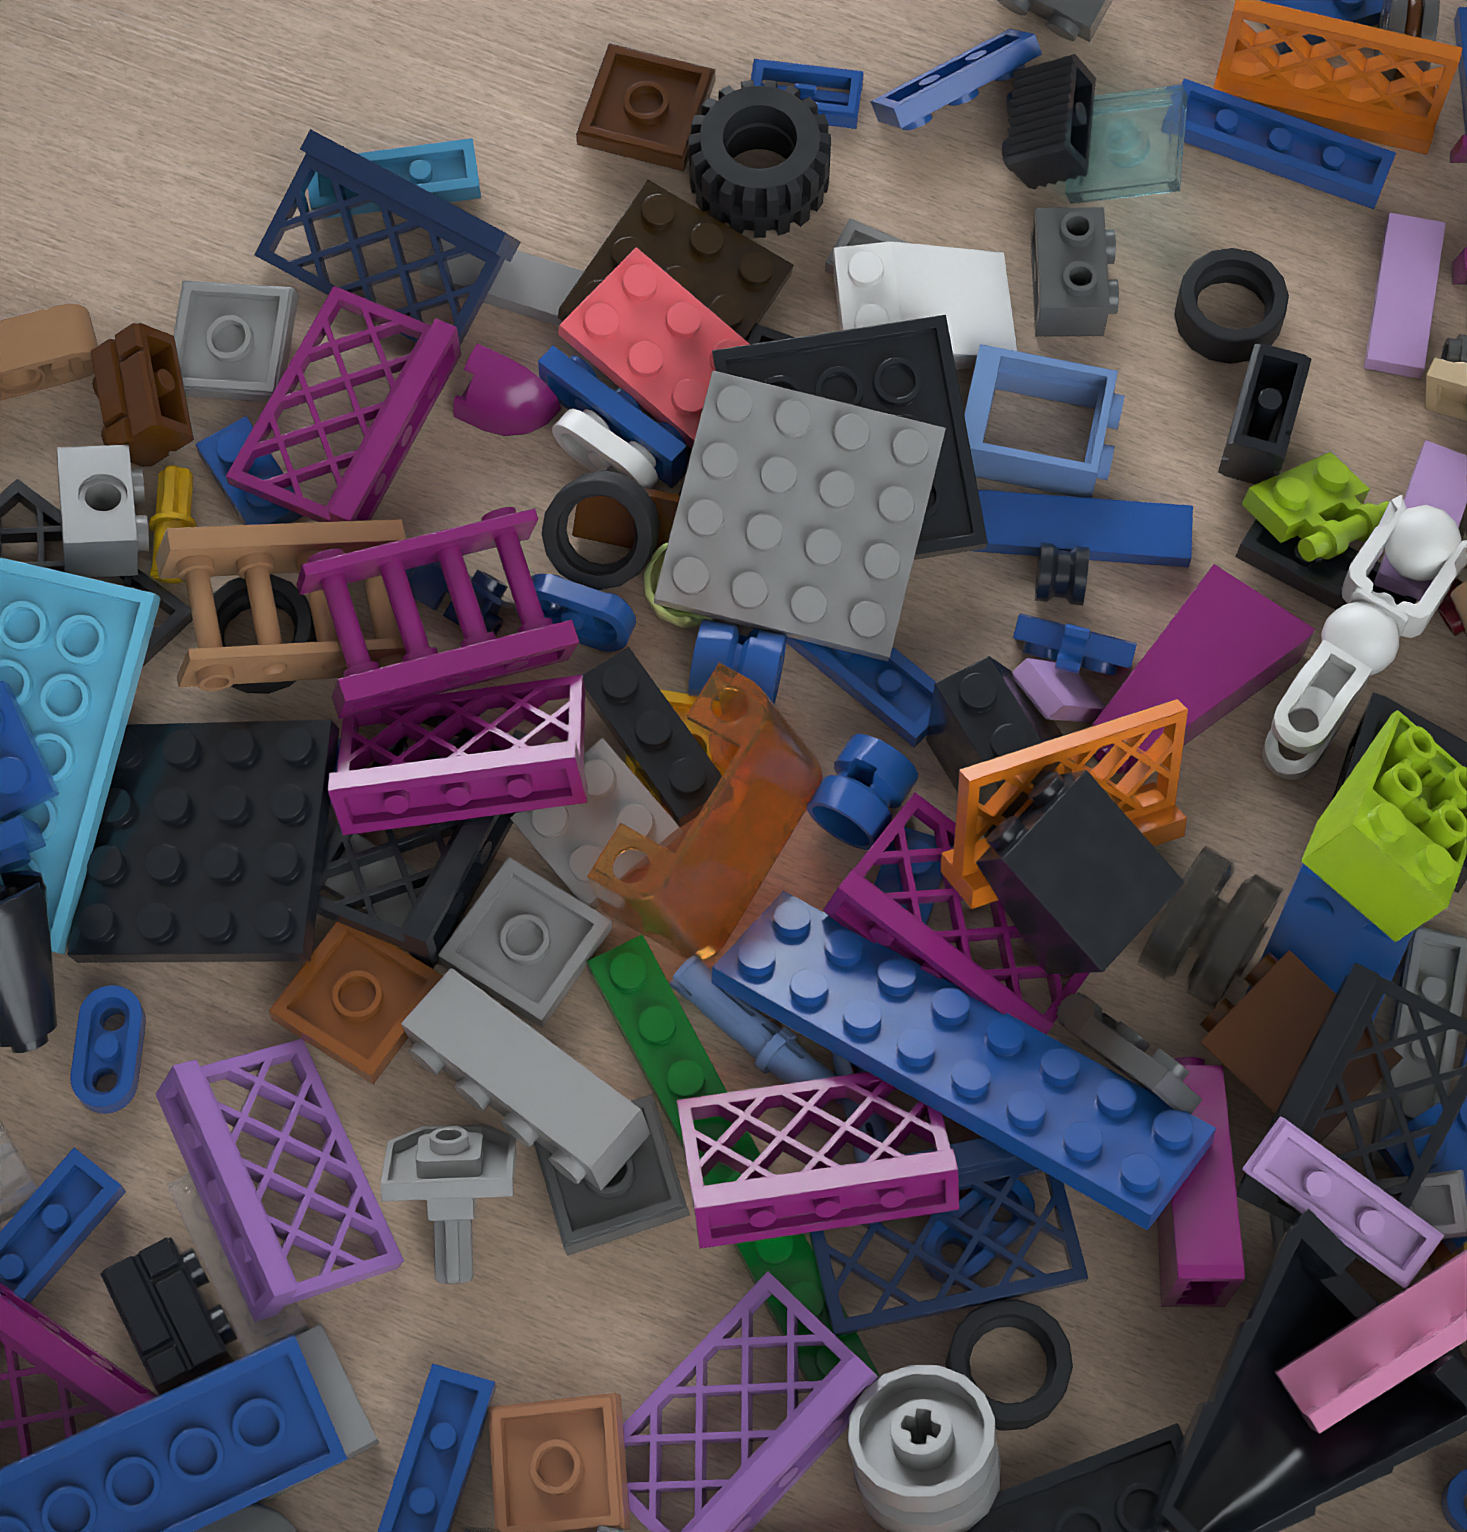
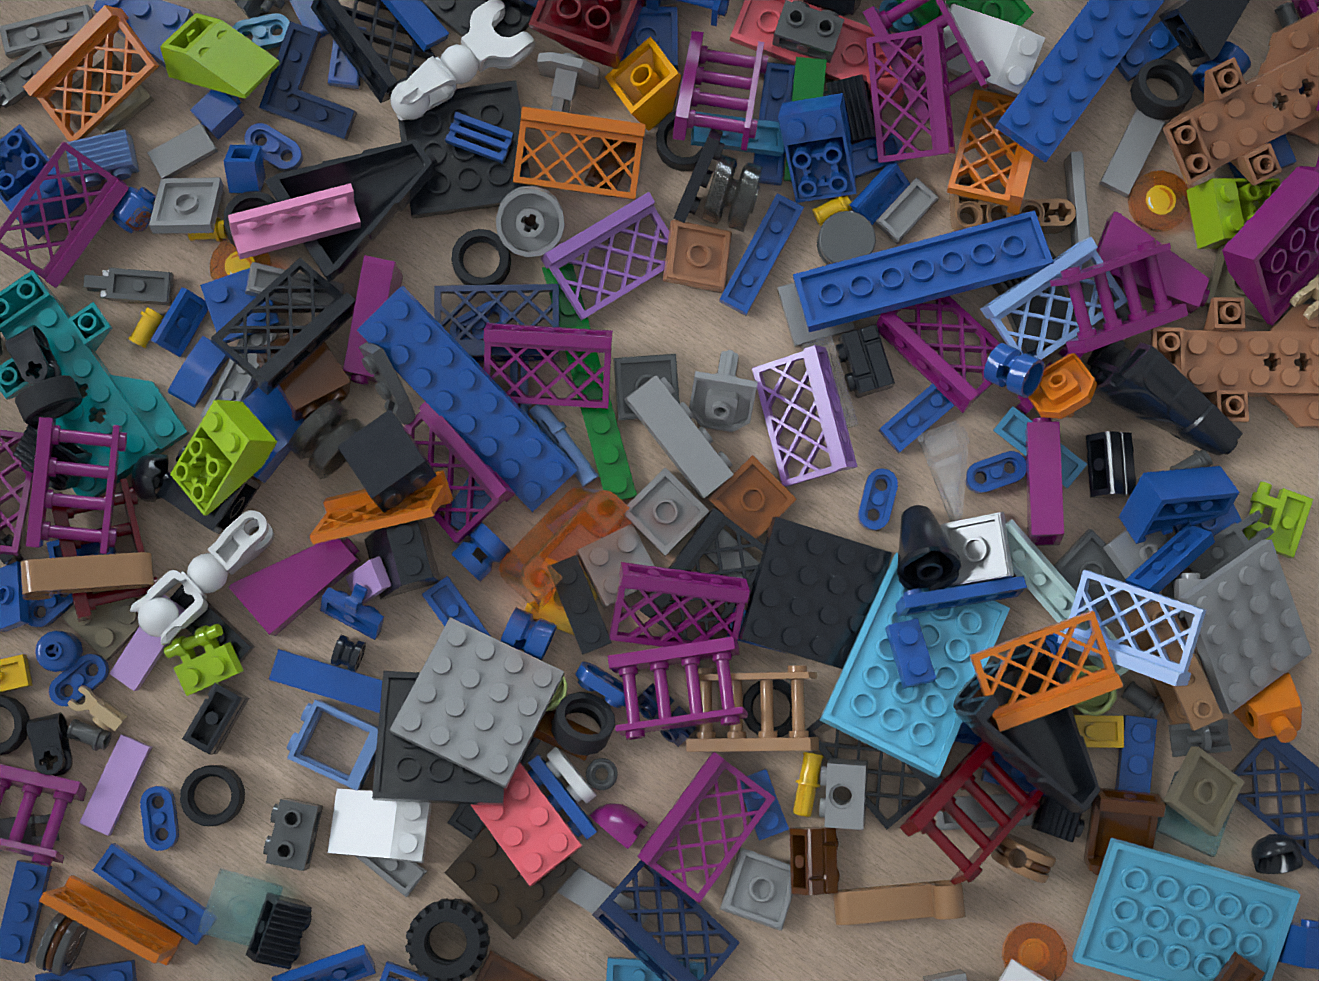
camera: 170 degrees left, 15 degrees up
(548, 456) = (591, 774): none -> dark grey plate
(1313, 259) = (157, 818): none -> blue plate
(1344, 1201) = (307, 284): lavender tile -> none

